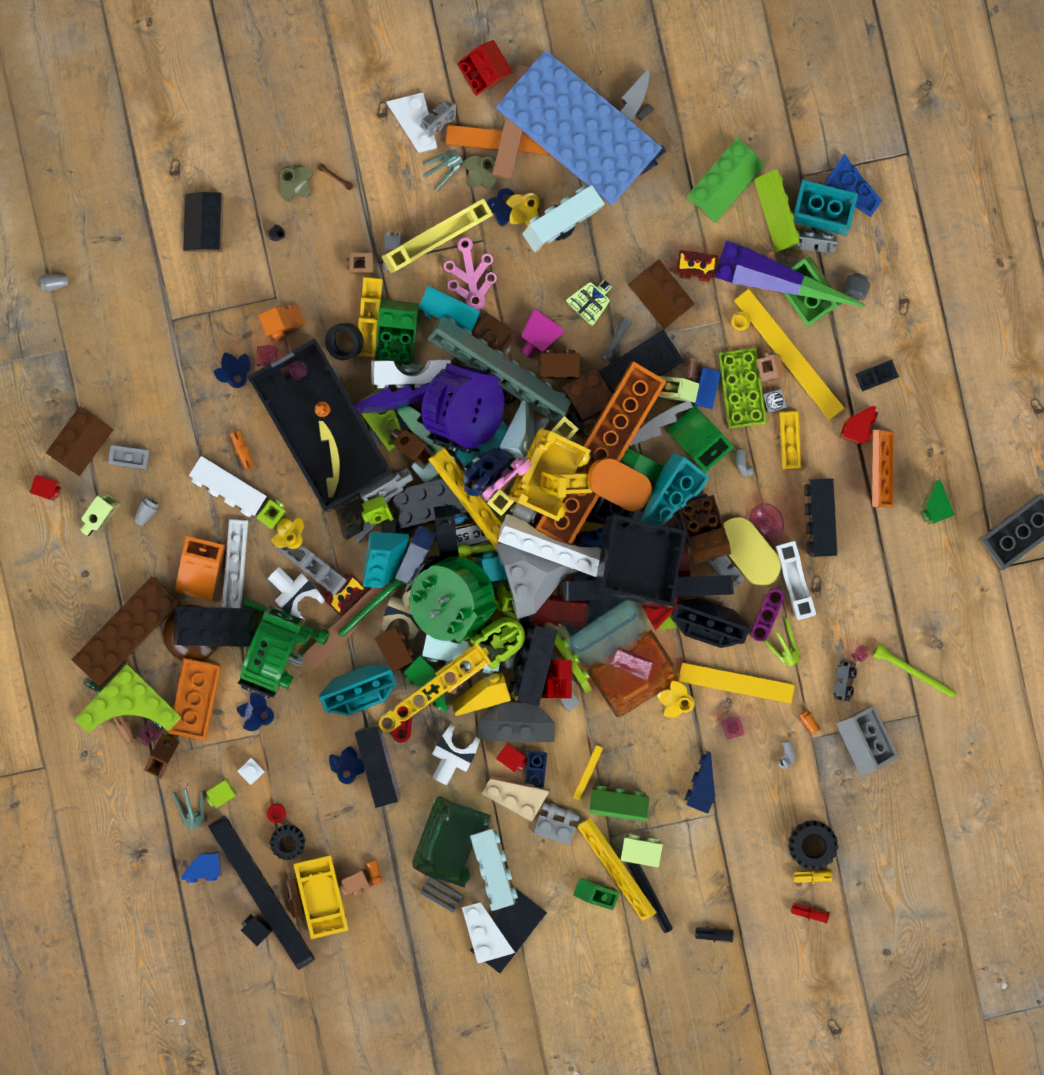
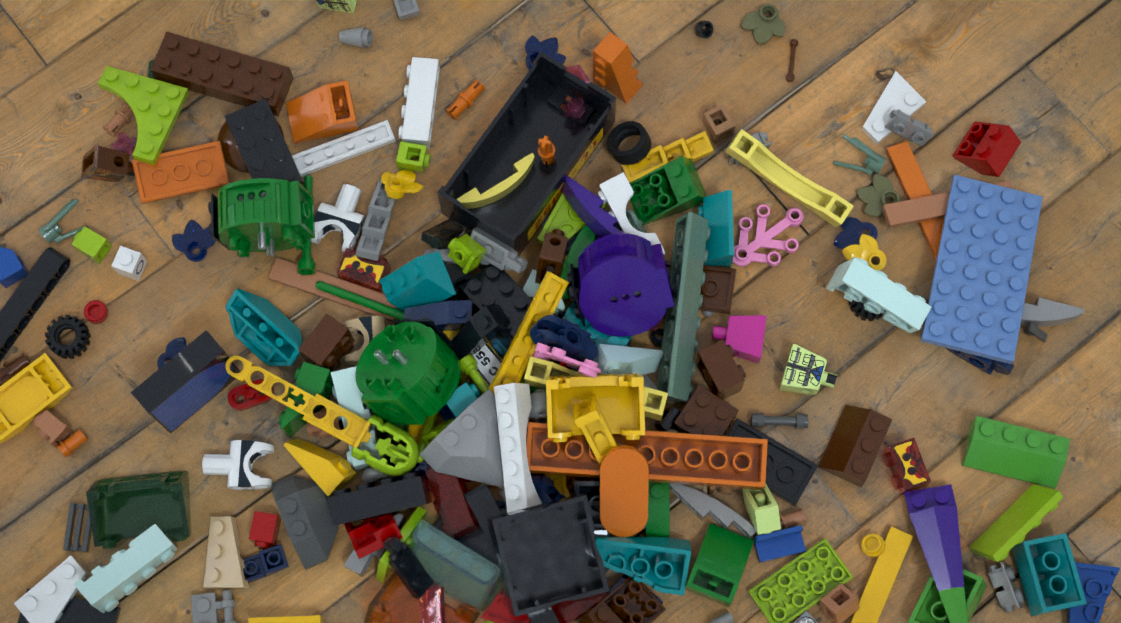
camera: 65 degrees right, 15 degrees down
(594, 666) = (408, 567): none -> black hinge

